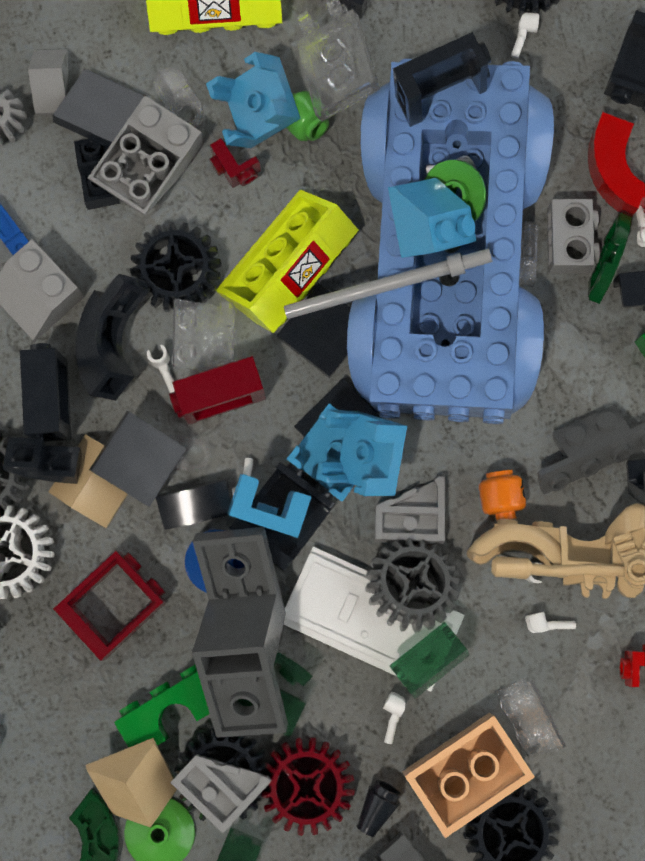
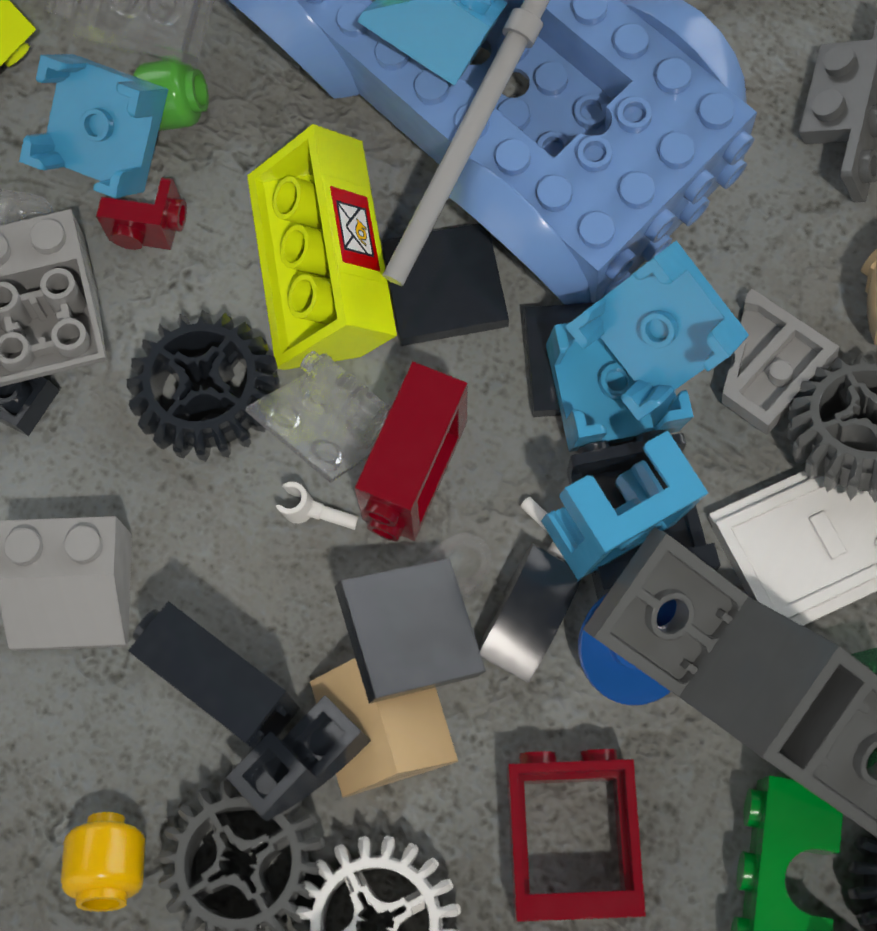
camera: 45 degrees left, 10 degrees down
(100, 337) = (200, 543): black arch -> none
(502, 494) = (831, 241): orange head -> none

